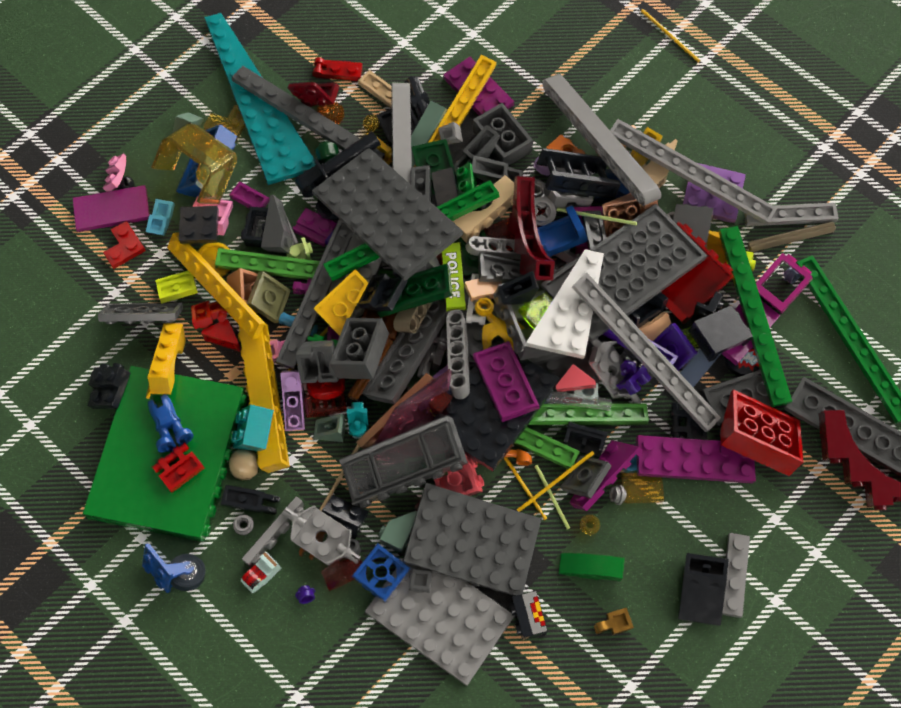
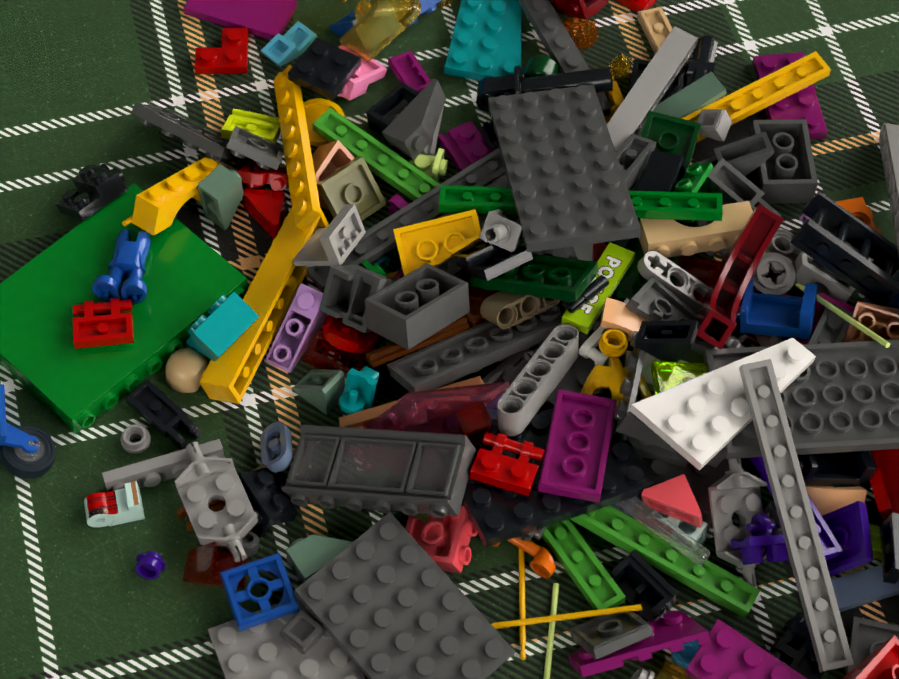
camera: 30 degrees right, 10 degrees down
(191, 343) = (221, 195): none -> sand green slope
(192, 300) = (249, 145): none -> dark grey plate
(283, 338) = (333, 244): none -> light grey bracket
(333, 483) = (276, 447): none -> sand blue plate
(380, 275) = (501, 231): none -> light grey bracket
(454, 279) = (590, 292): none -> black pin
(476, 421) = (505, 471): none -> red plate

